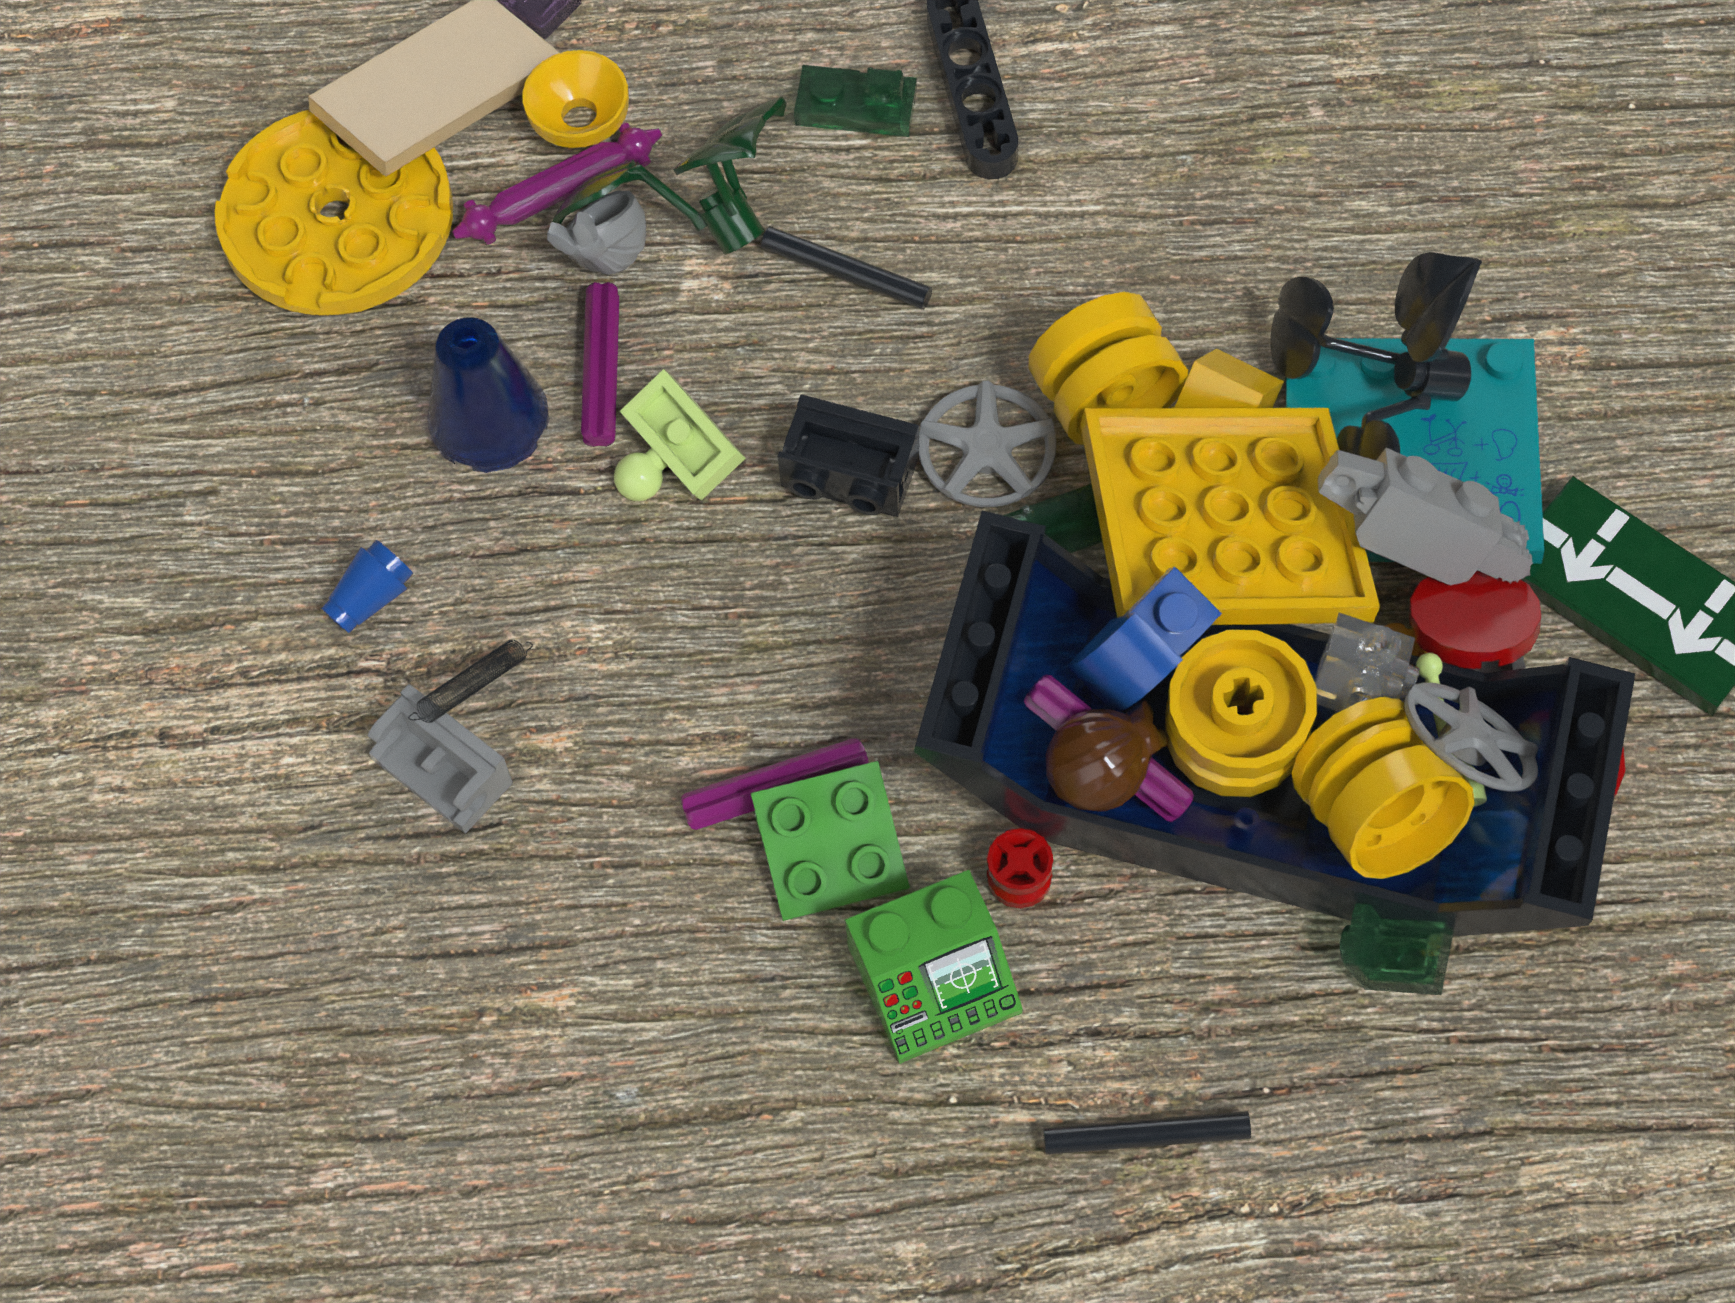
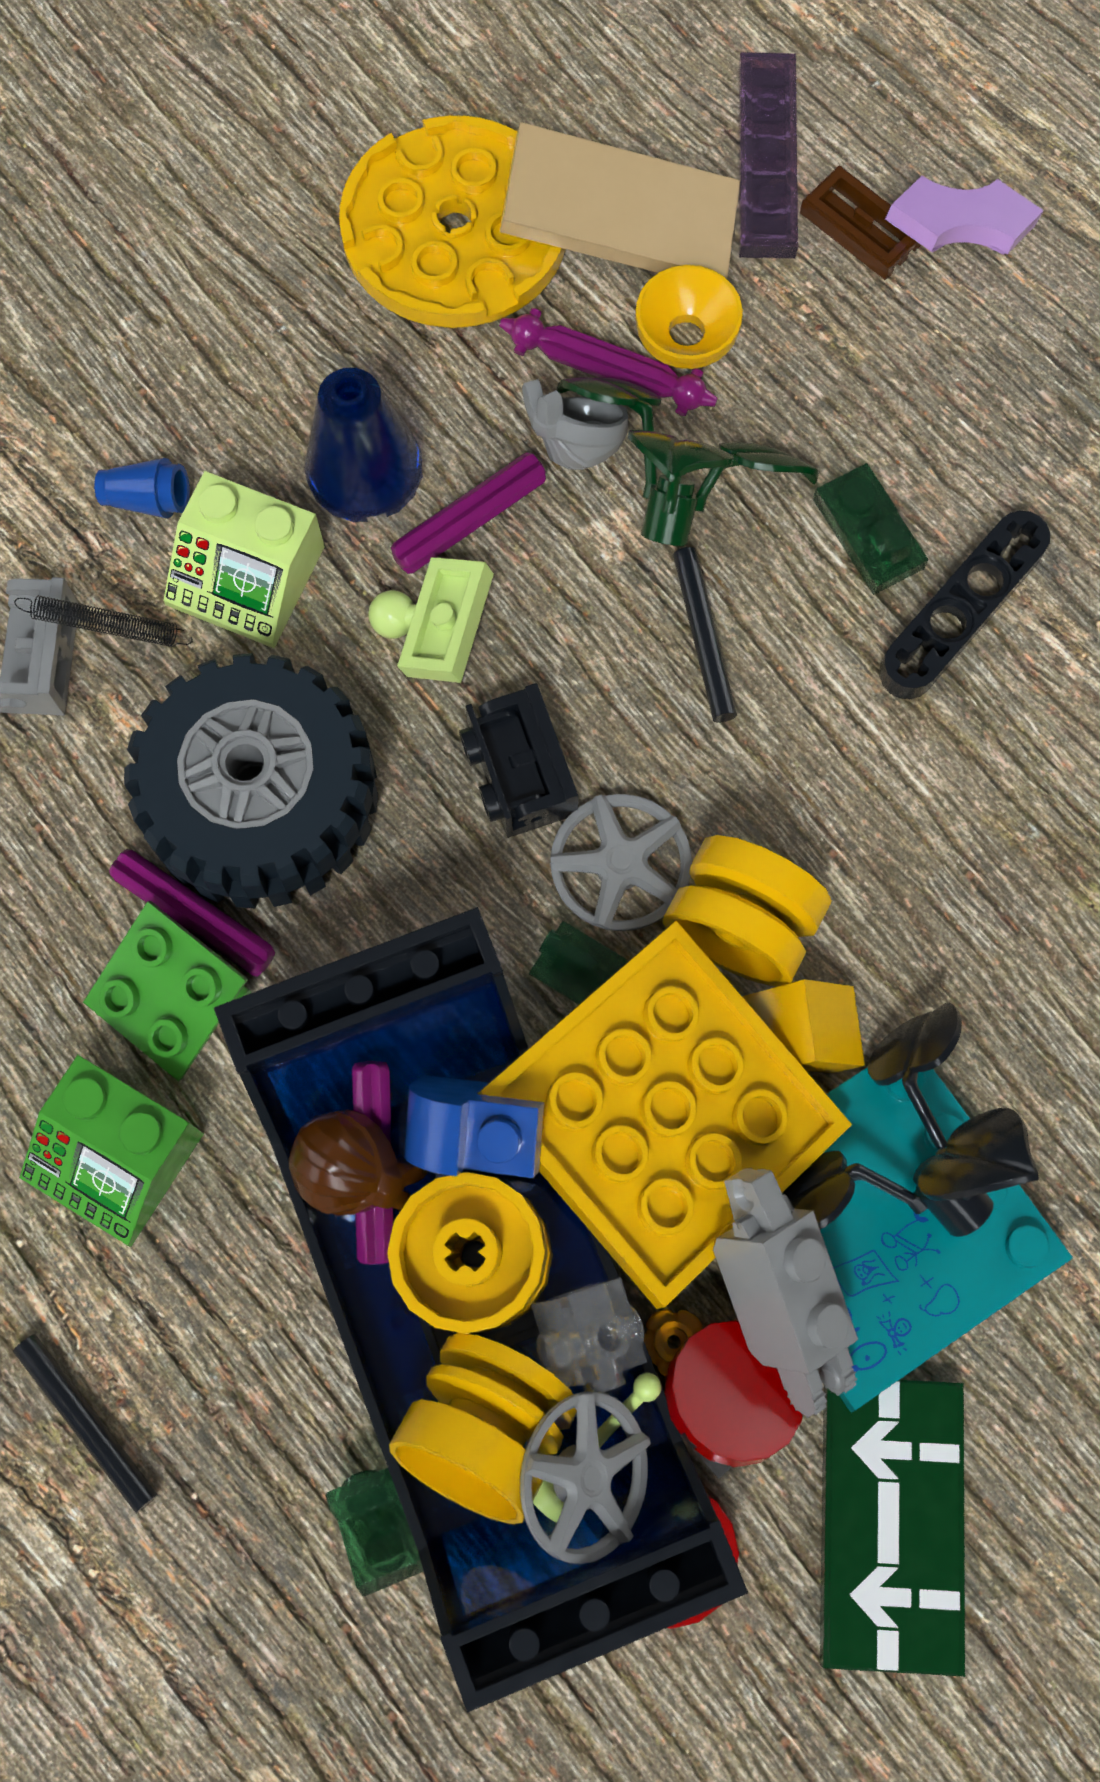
camera: 50 degrees right, 10 degrees up
(500, 549) = (241, 559): none -> yellowish green slope
(710, 652) = (252, 780): none -> black wheel
(1019, 853) = (232, 1154): red wheel -> none

